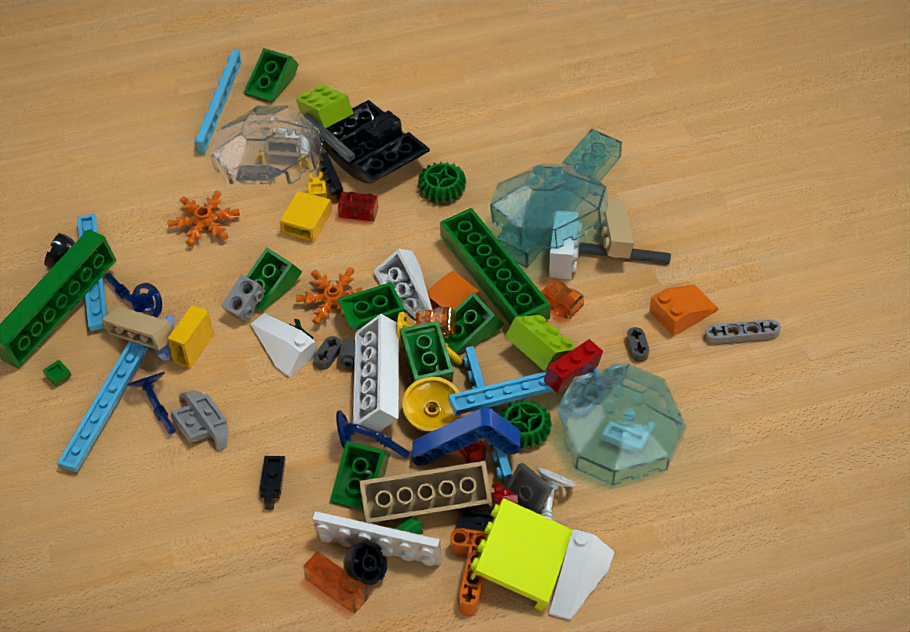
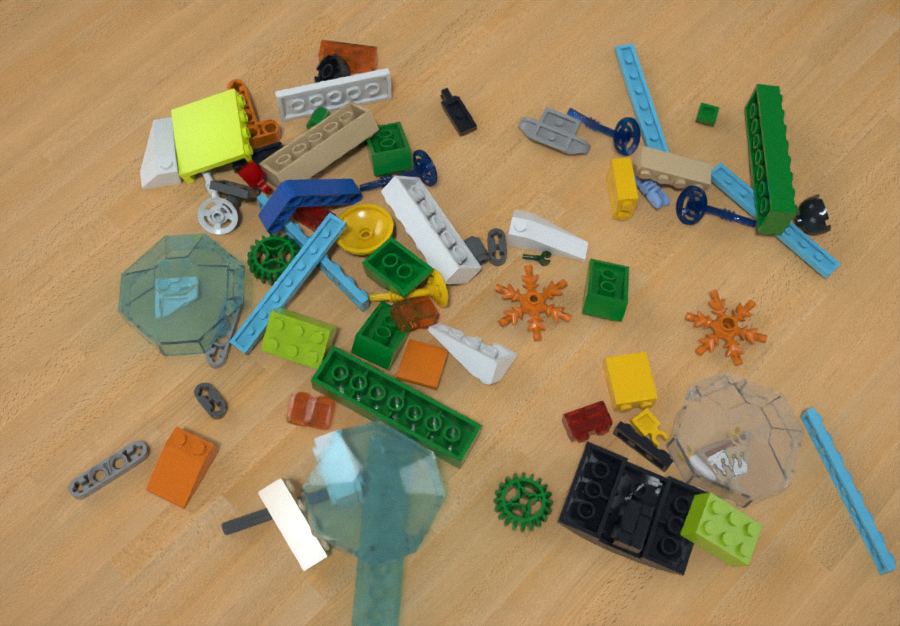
camera: 145 degrees right, 15 degrees up
(239, 296) = (610, 252): light grey brick -> none
(271, 75) = (824, 561): green slope -> none
(330, 139) = (674, 478): dark grey axle -> none
(368, 304) = (482, 298): green slope -> none
(573, 364) = (252, 320): red brick -> none

